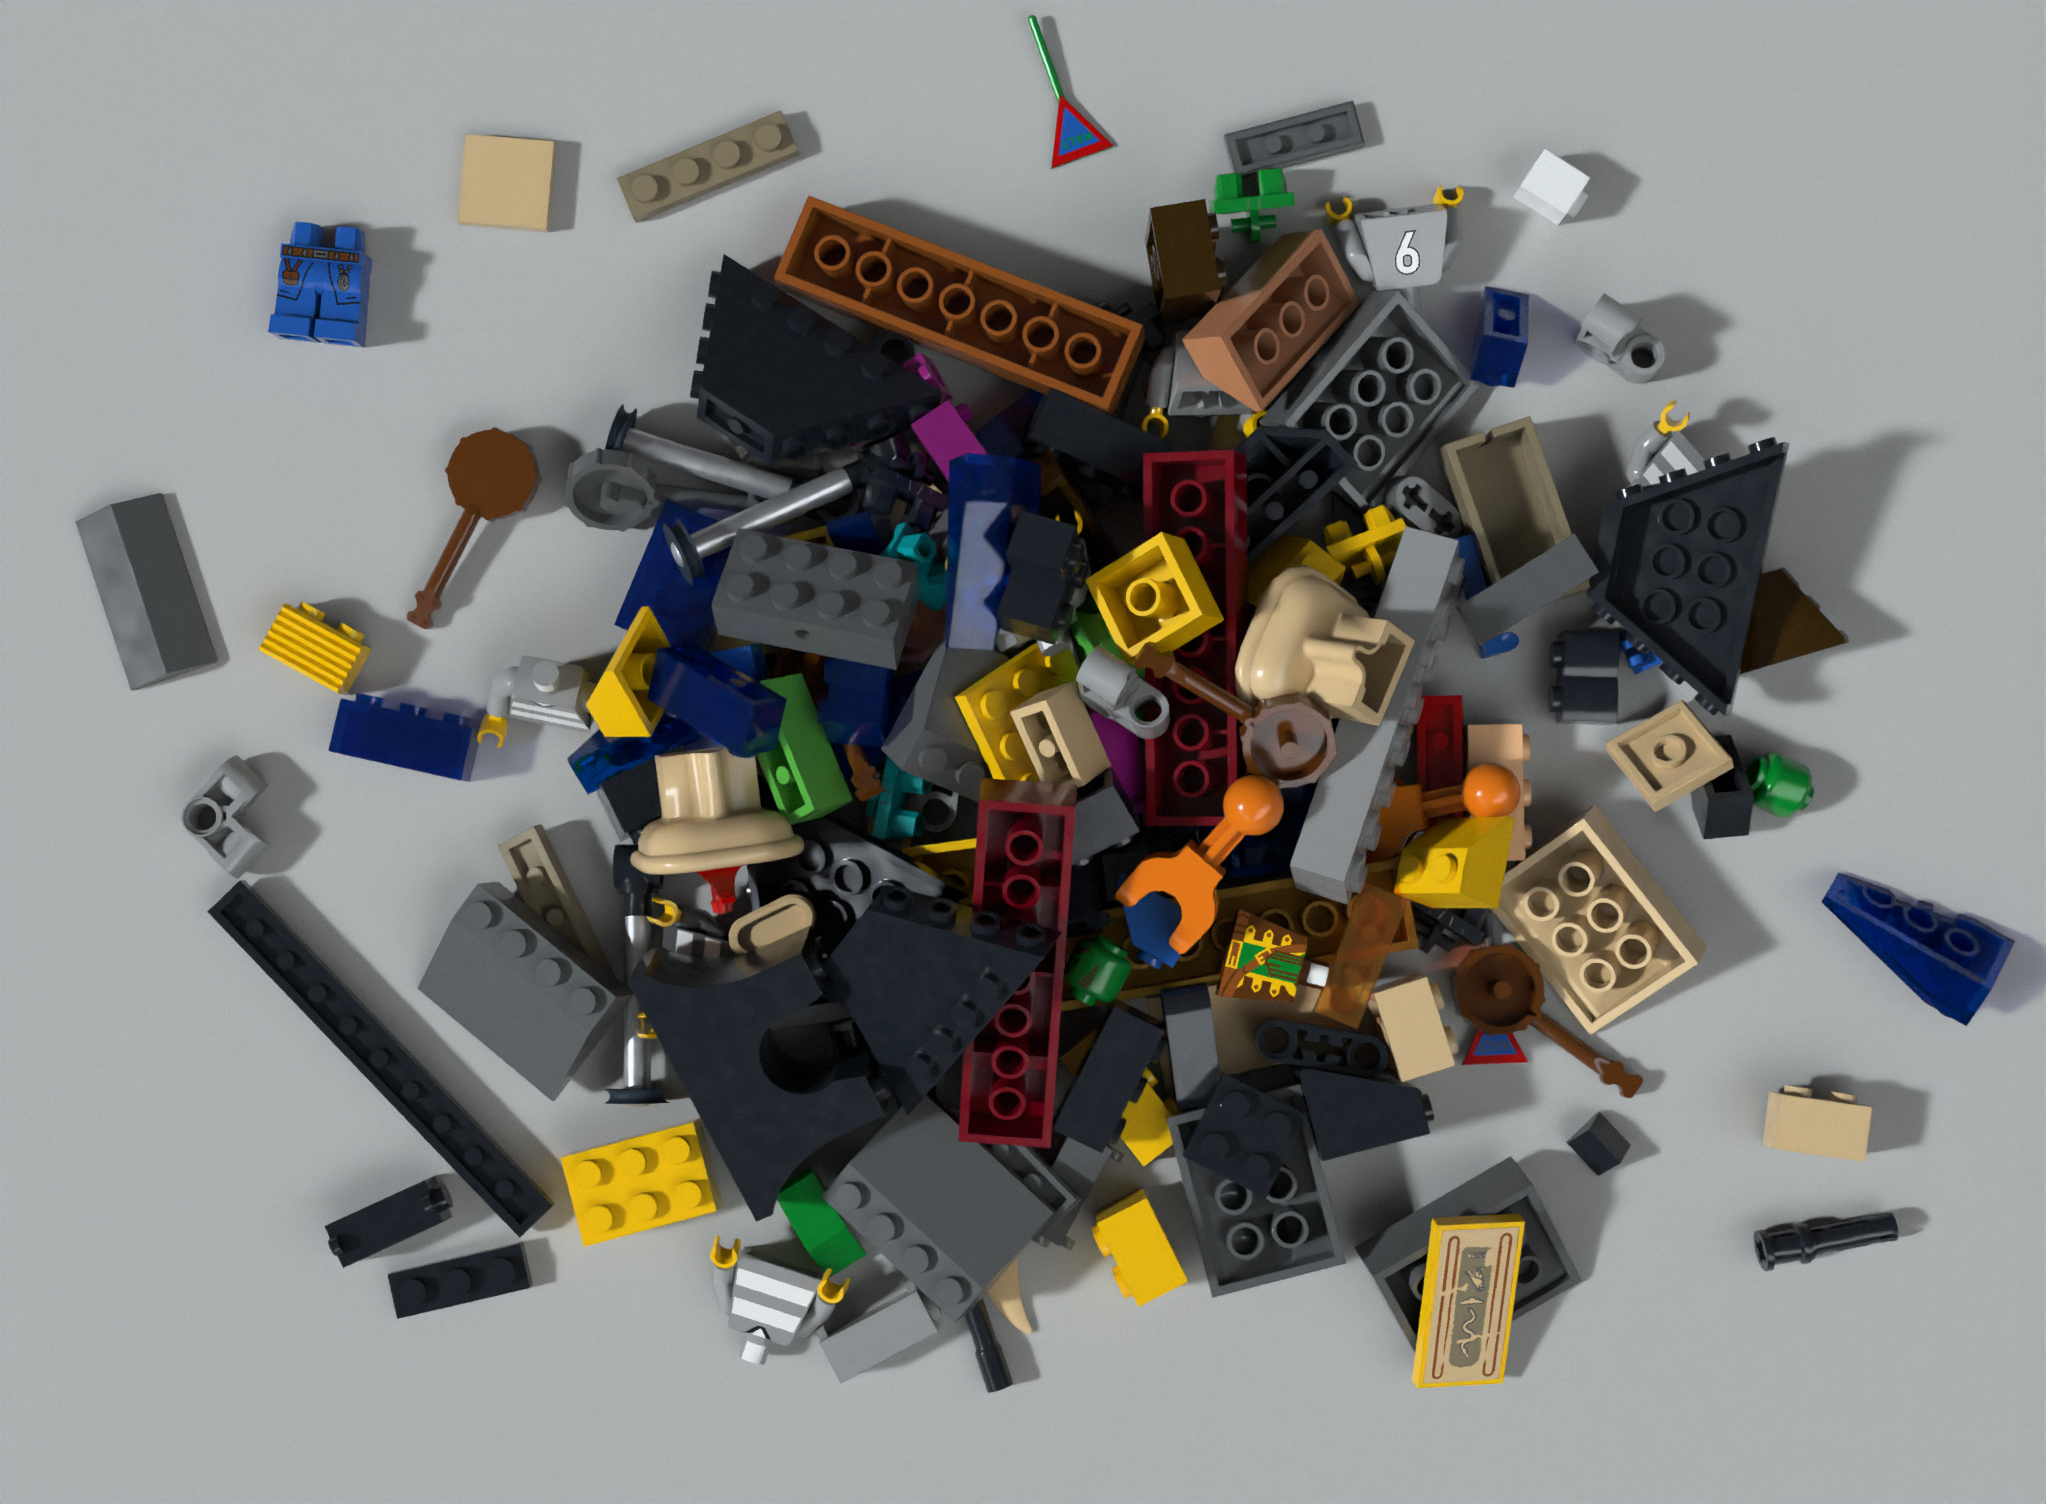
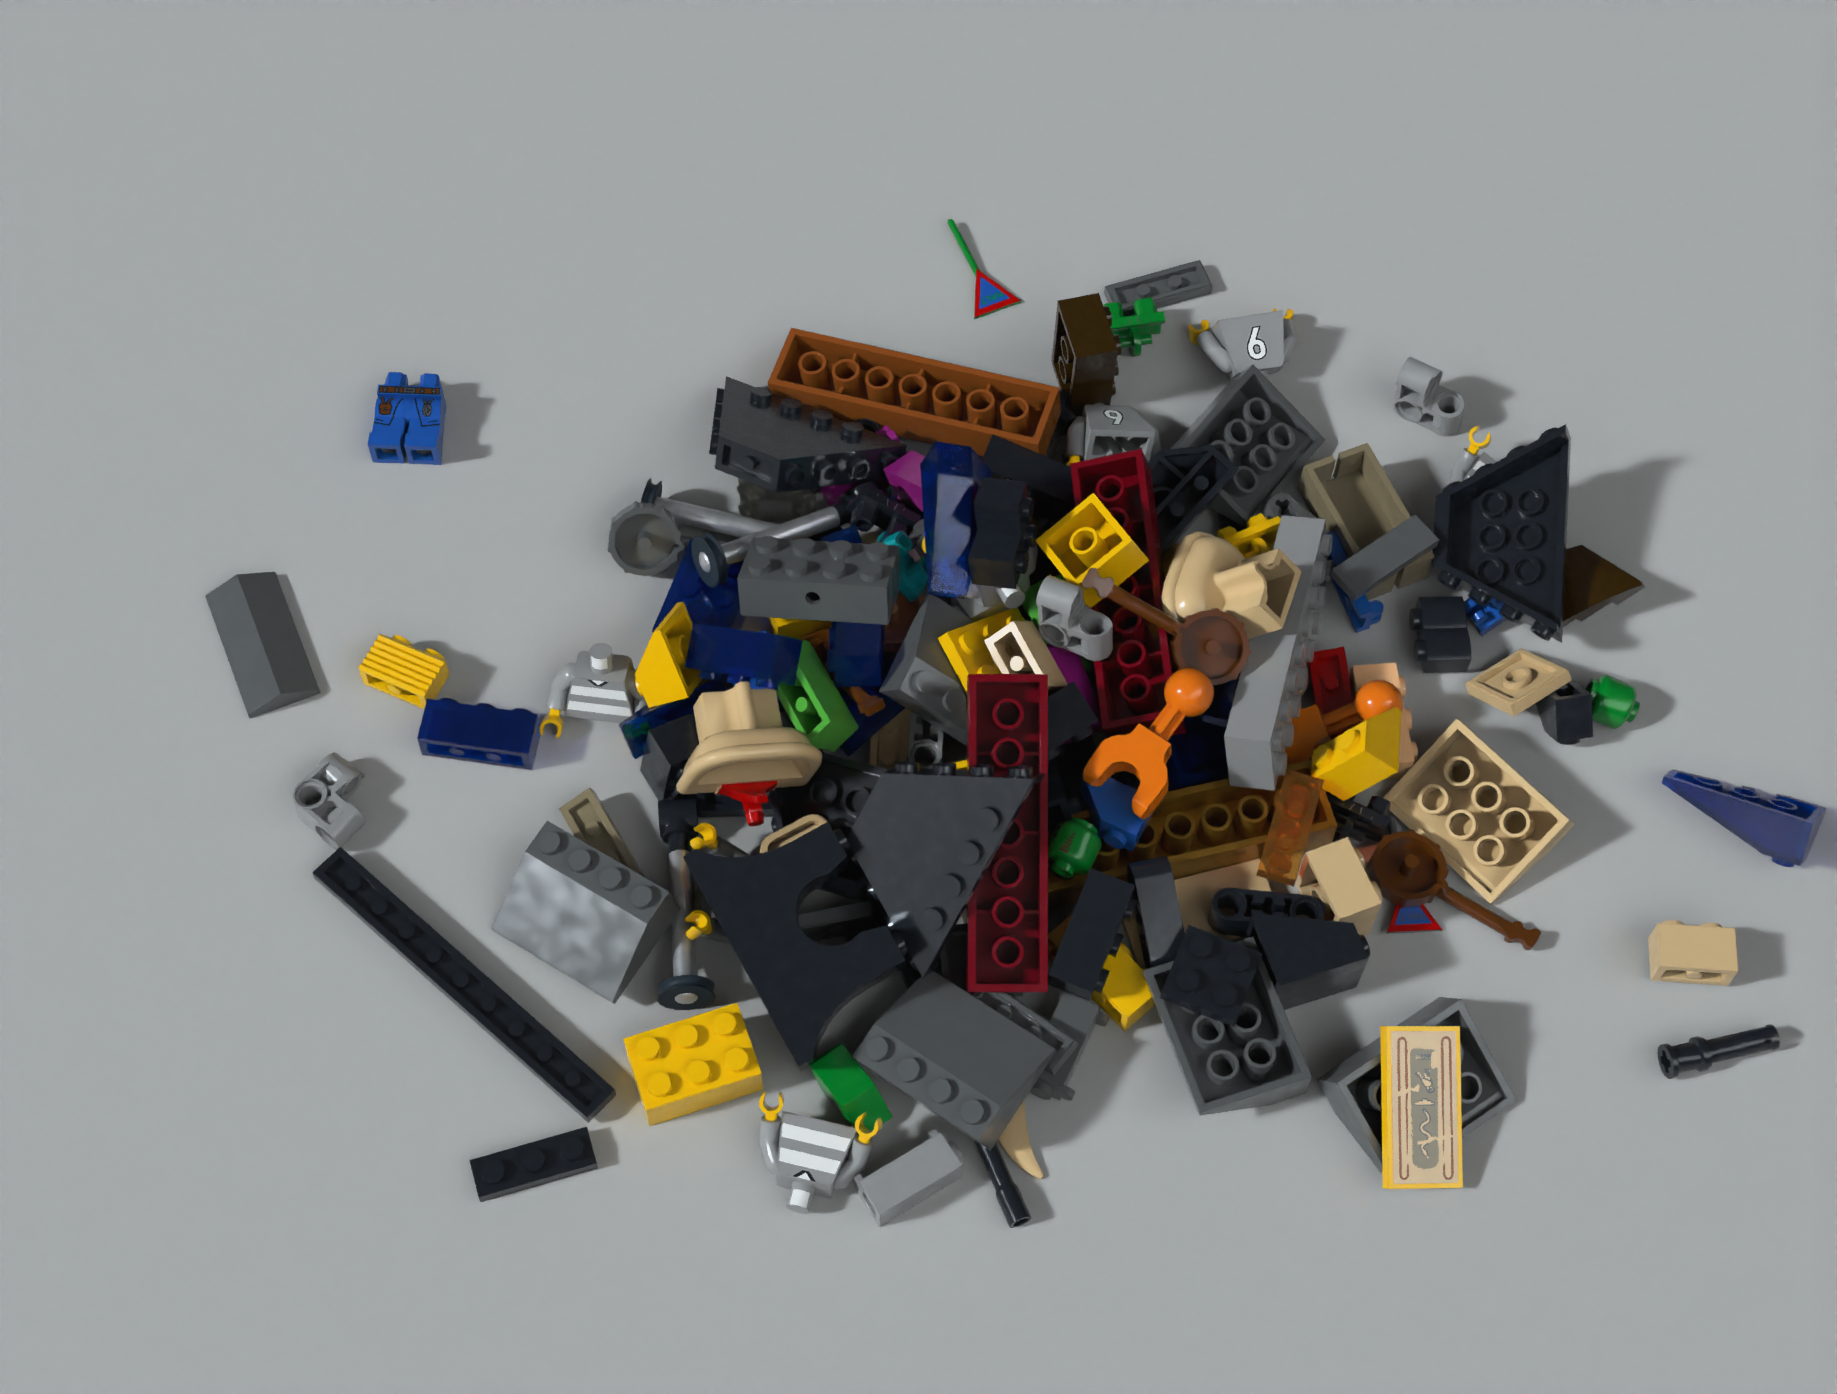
camera: 10 degrees left, 25 degrees down
(389, 1221) = (472, 1112): black brick -> none
(491, 479) = (546, 544): reddish brown piece -> none
(507, 183) = (552, 346): tan tile -> none
(708, 166) = (708, 328): dark tan plate -> none
(891, 805) = (886, 741): teal hips -> none
(1140, 1248) = (1131, 1082): yellow brick -> none
(1266, 962) = (1213, 835): torso -> none
(1273, 319) = (1159, 390): nougat slope -> none
(1500, 337) = (1335, 407): clear blue slope -> none
(1553, 188) = (1359, 305): white brick -> none
(1599, 1144) = (1511, 989): black slope -> none

